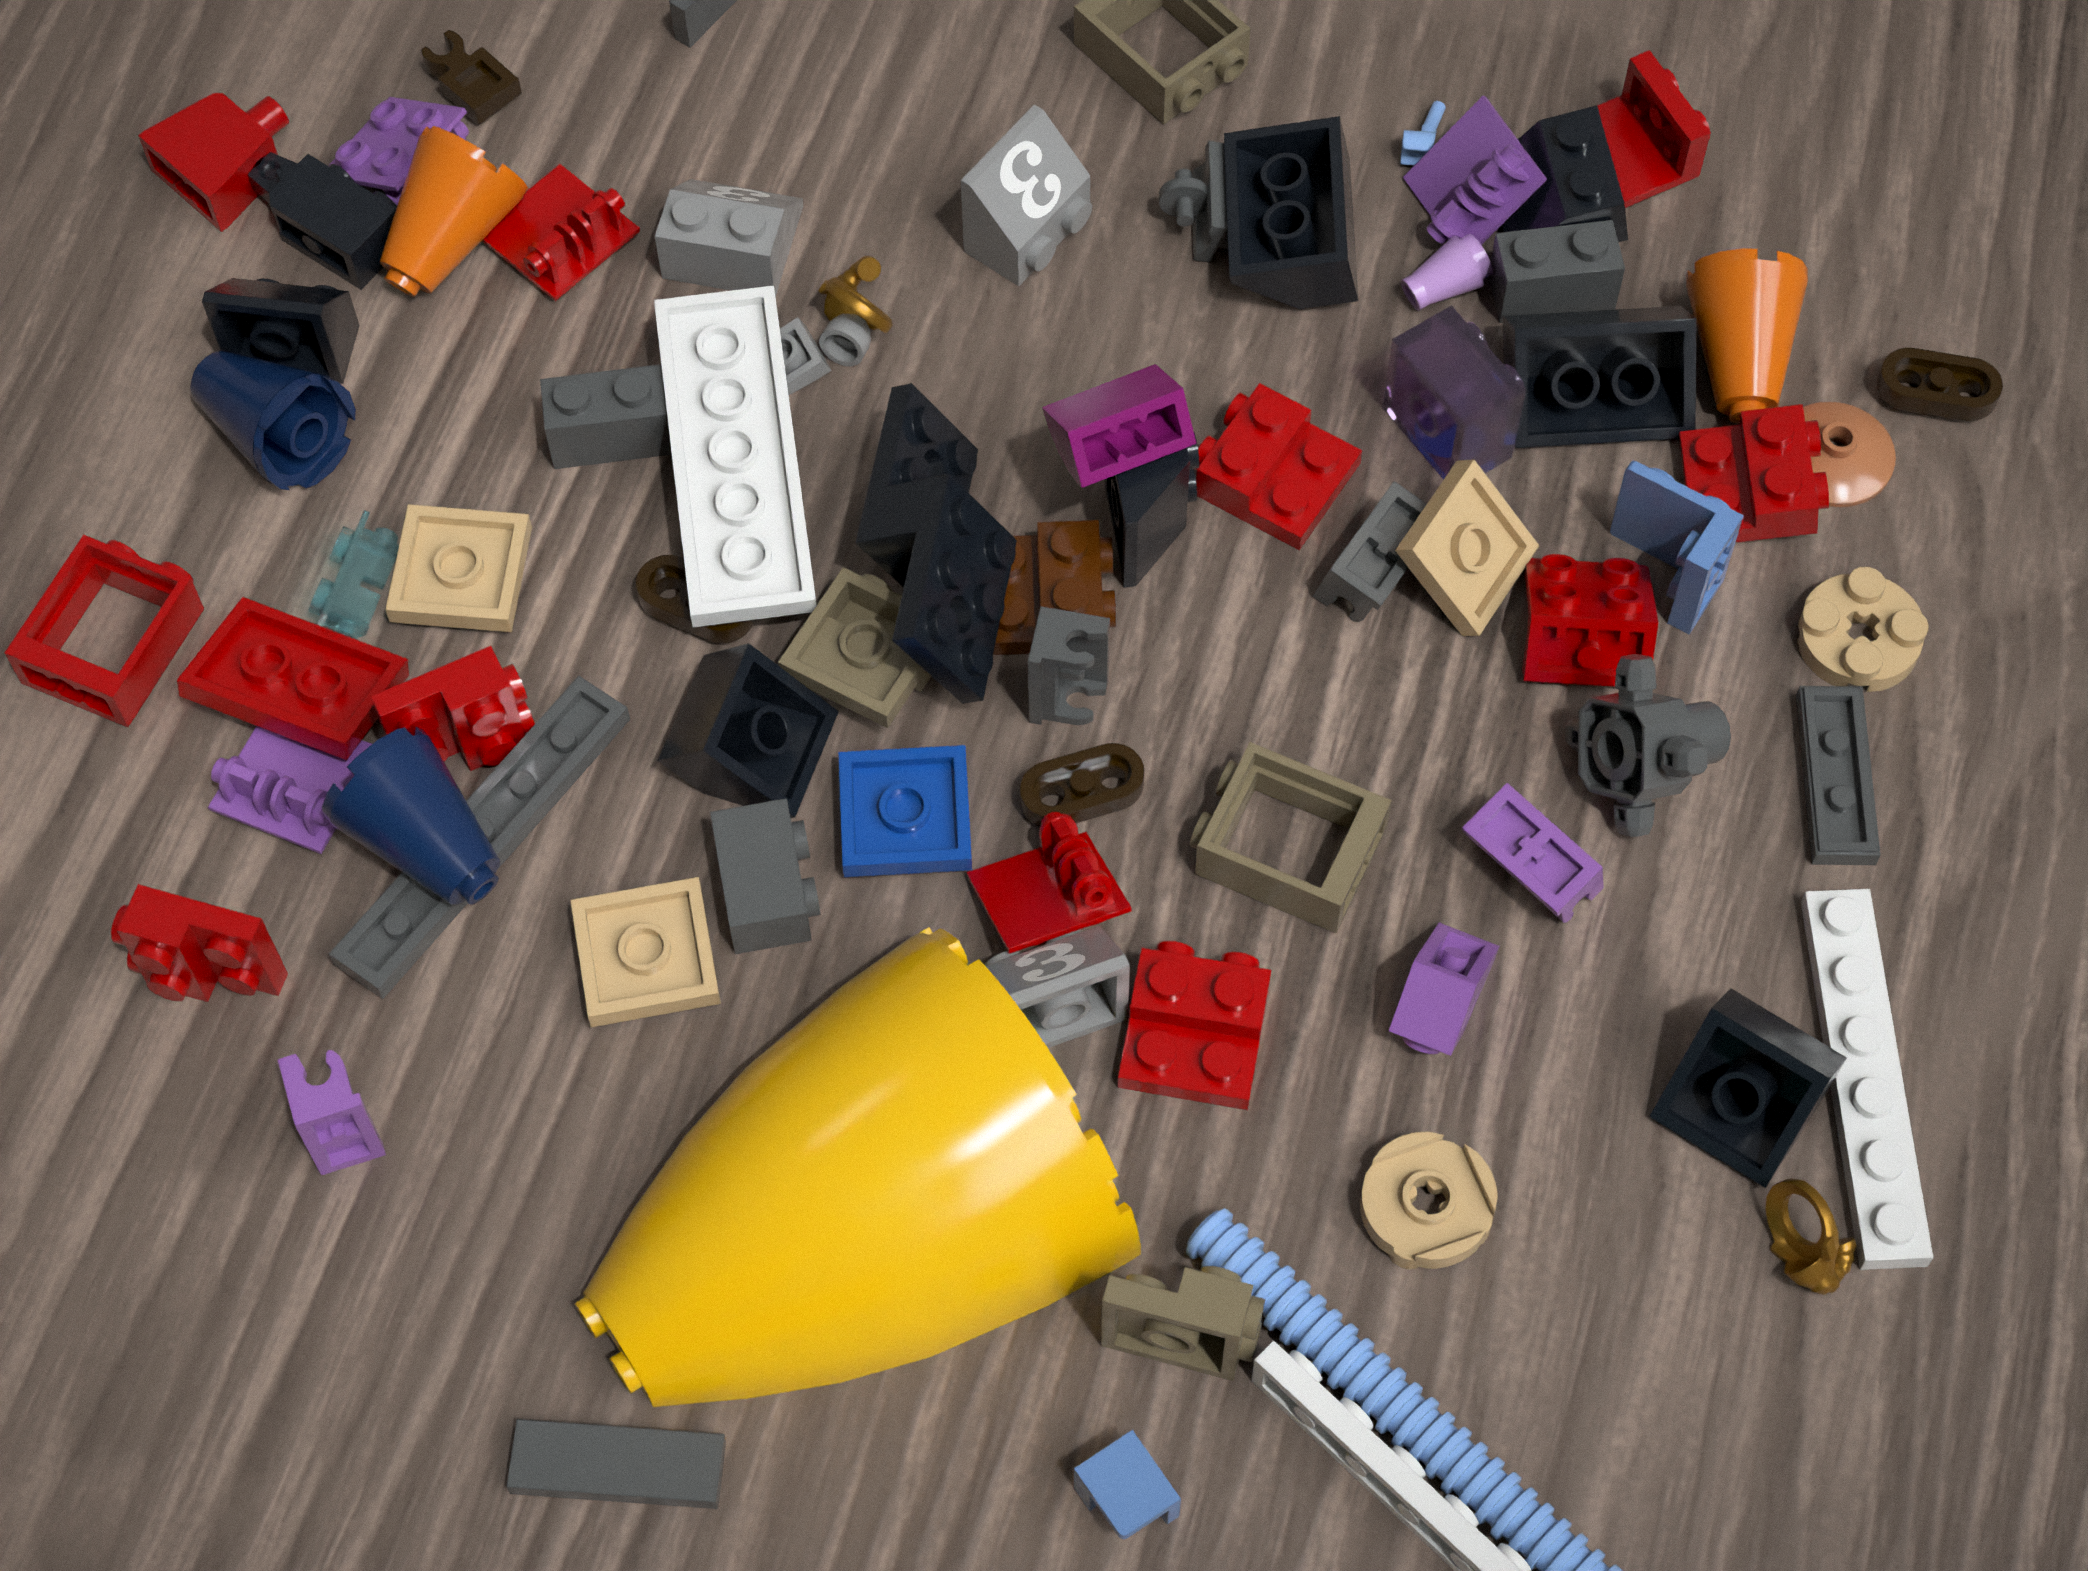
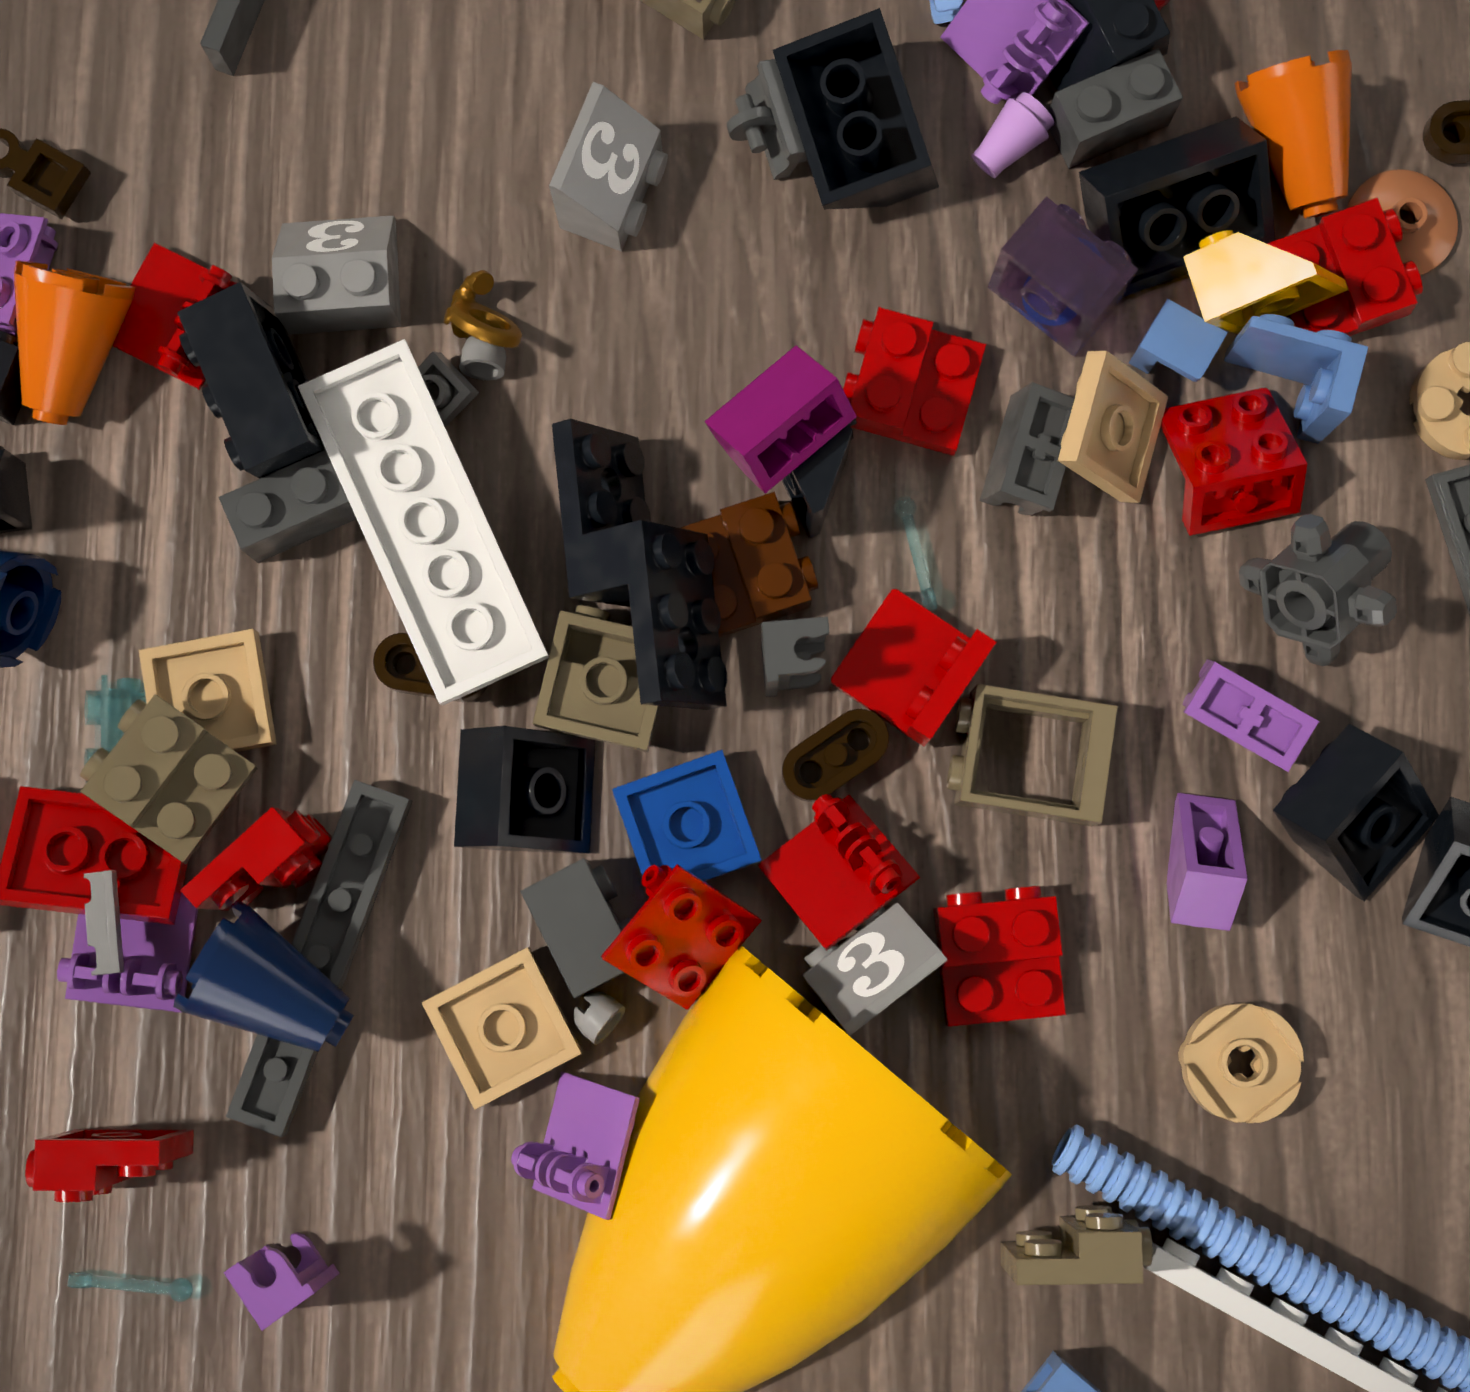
camera: 15 degrees left, 20 degrees up
(213, 1118) = (179, 1289): none -> clear light blue hinge
(279, 728) = (104, 922): none -> light grey piece
(392, 611) = (166, 777): none -> dark tan plate
(609, 282) = (250, 379): none -> black slope
(688, 1081) = (581, 1145): none -> medium lavender hinge
(750, 970) = (600, 1017): none -> light grey hinge
(861, 896) = (680, 935): none -> red hinge
(1191, 723) = (910, 666): none -> red bracket
(1231, 582) = (905, 508): none -> clear light blue hinge
(1561, 489) = (1179, 342): none -> medium blue panel
(1627, 982) = (1357, 810): none -> black slope
(1646, 426) = (1249, 278): none -> yellow slope

